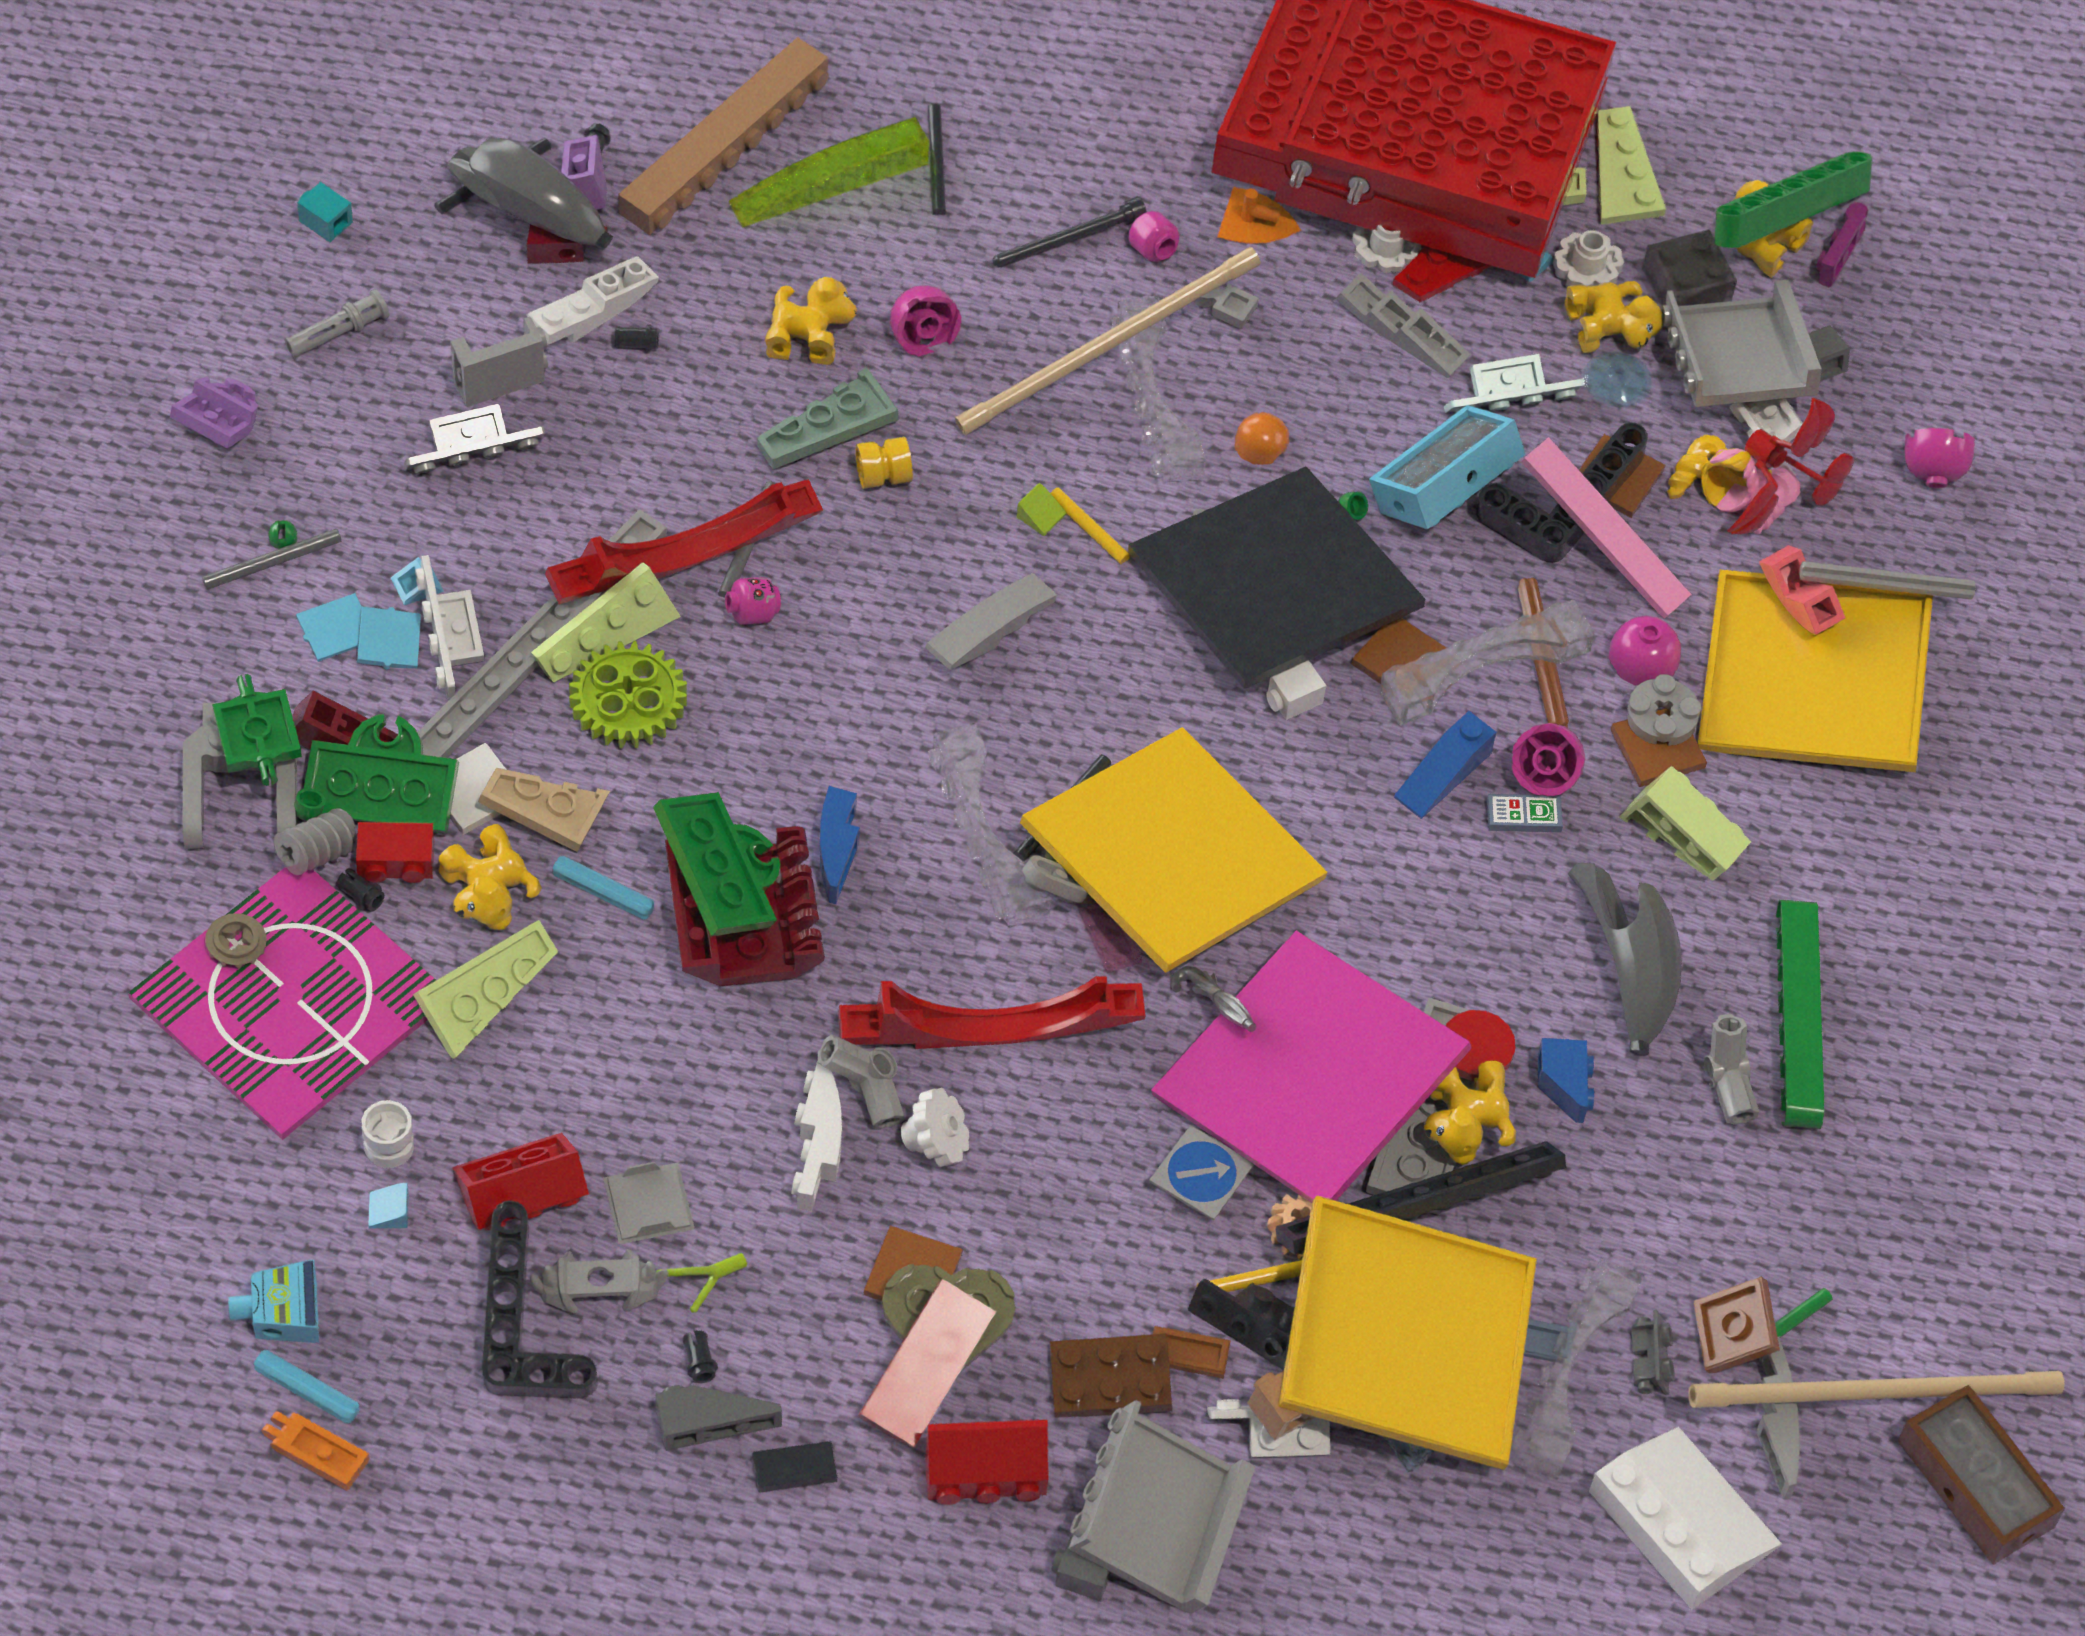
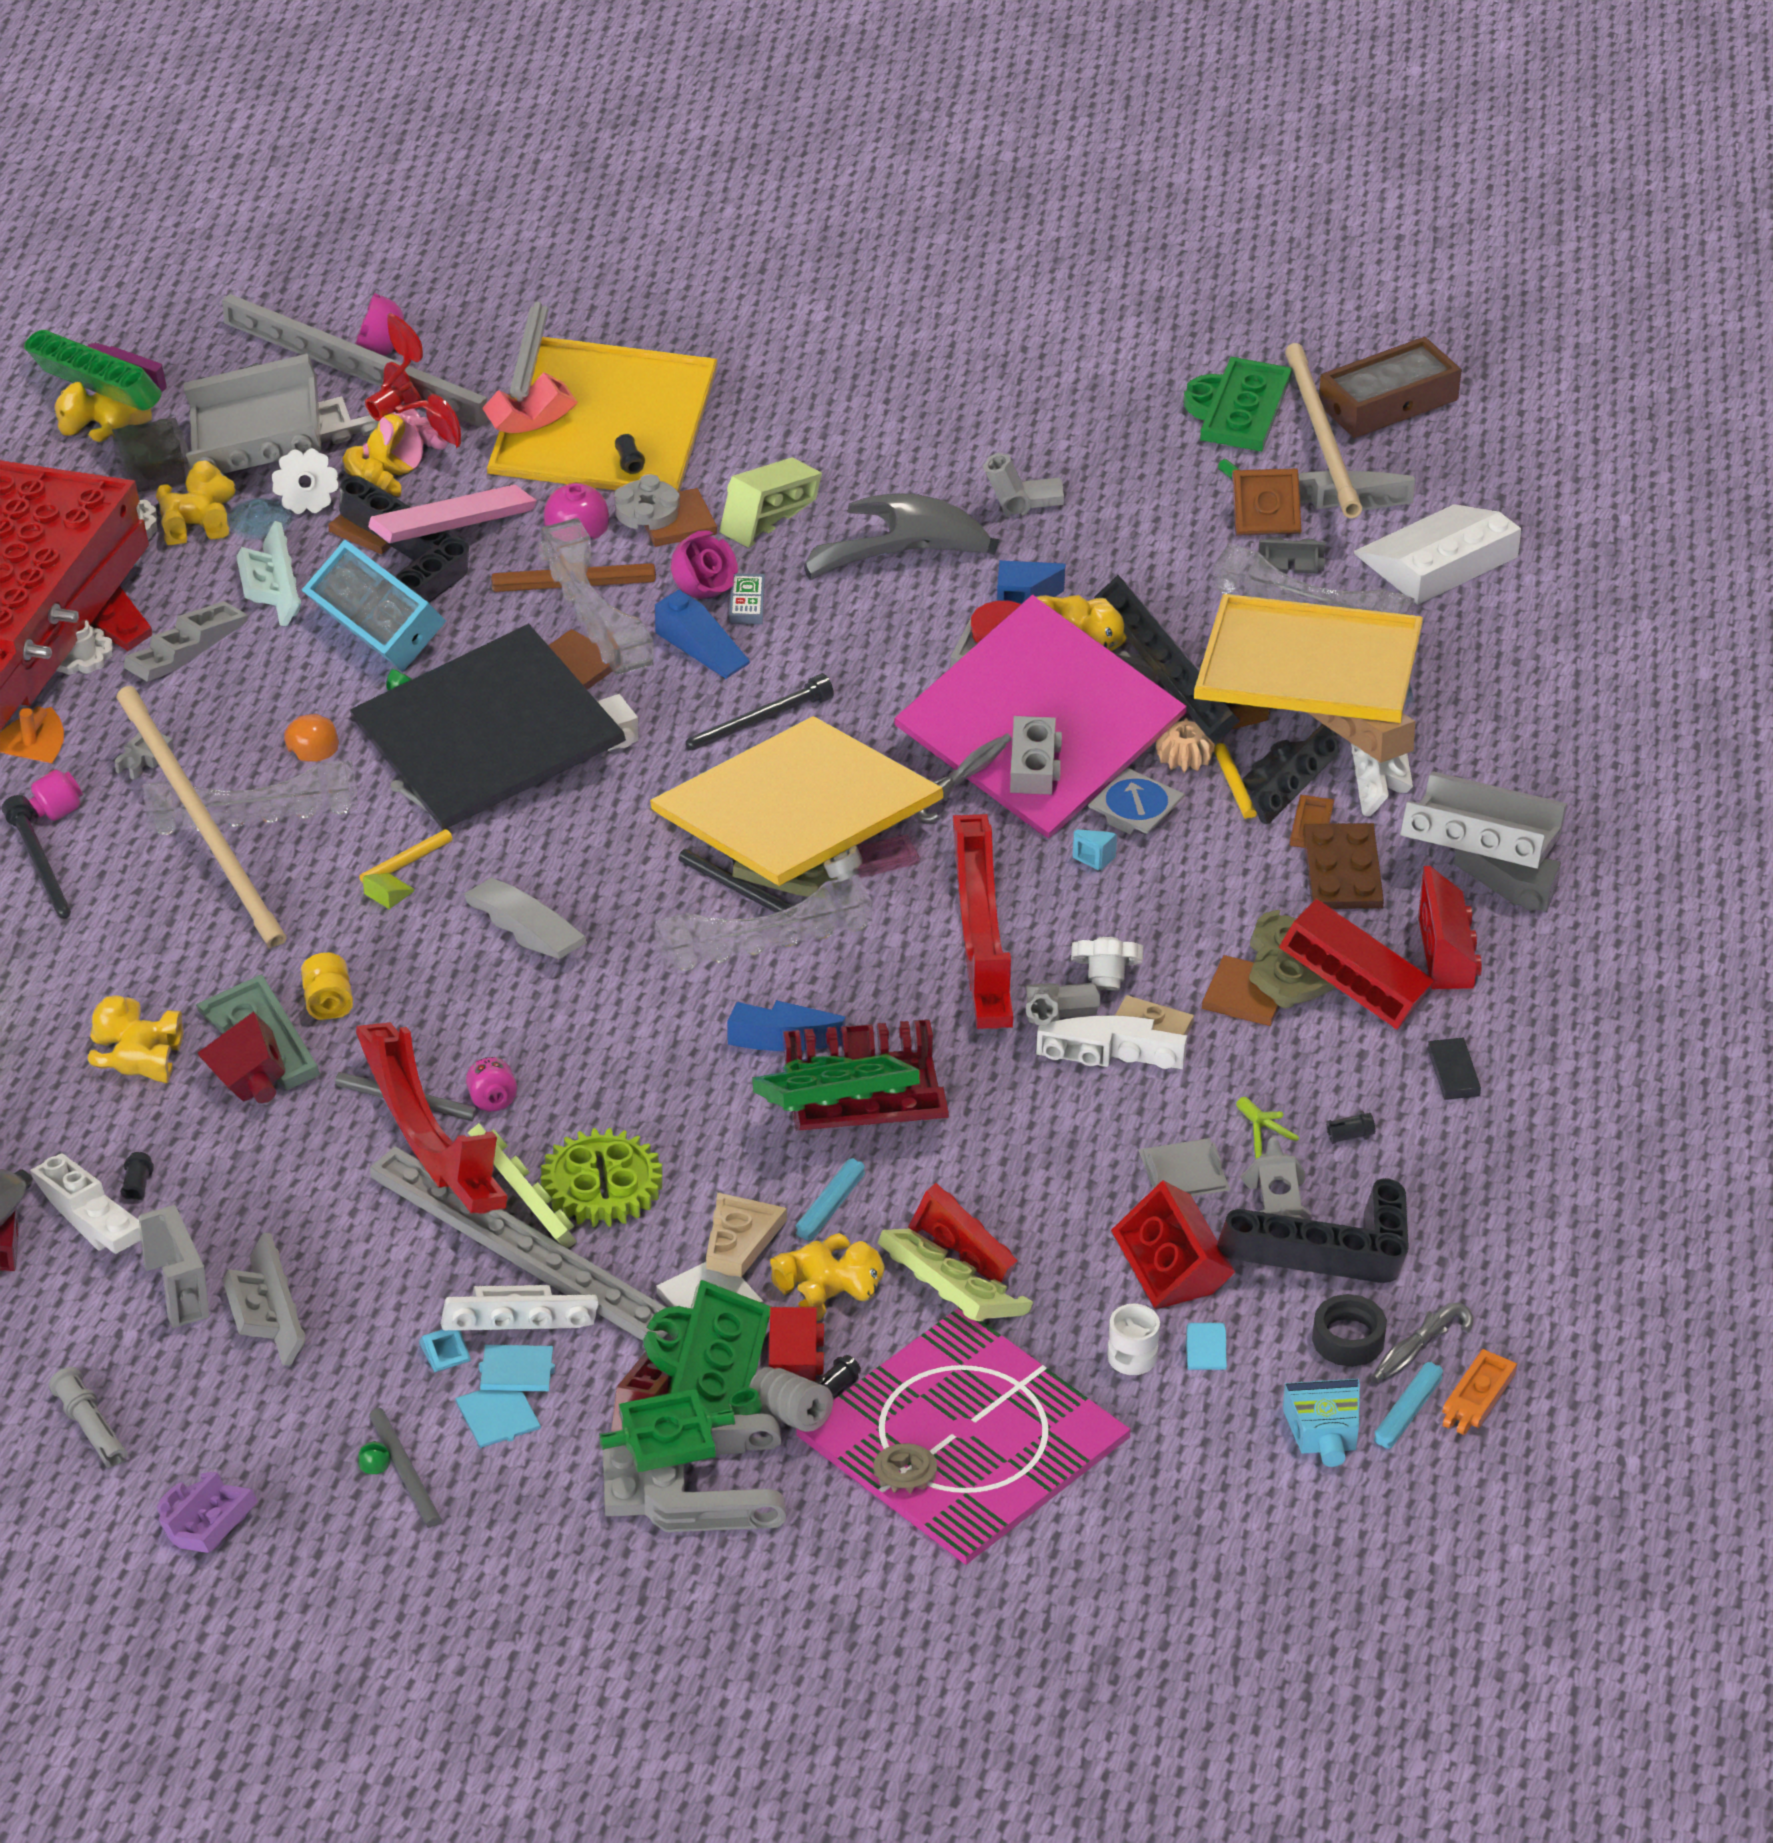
camera: 85 degrees left, 15 degrees down
(411, 1361) = (1346, 1351): none -> black tyre
(412, 1415) = (1433, 1325): none -> flat silver piece
(534, 985) = (957, 1229): none -> red wing
(704, 1415) = (1417, 1125): dark grey slope -> none
(772, 403) = (246, 1059): none -> dark red torso
(864, 1181) = (1164, 1018): none -> tan plate
(924, 314) = (143, 954): dark pink cylinder -> none
(1119, 1130) = (1094, 847): none -> medium azure slope
(1235, 1048) = (1034, 755): none -> light grey brick
(1367, 871) = (817, 689): none -> black piece
(1657, 400) = (322, 481): none -> white plant
(1741, 691) = (631, 459): none -> black pin
(1801, 1014) = (953, 451): green beam -> none
(1893, 431) = (345, 355): none -> light grey plate
(1942, 1315) = (1239, 403): none -> green plate

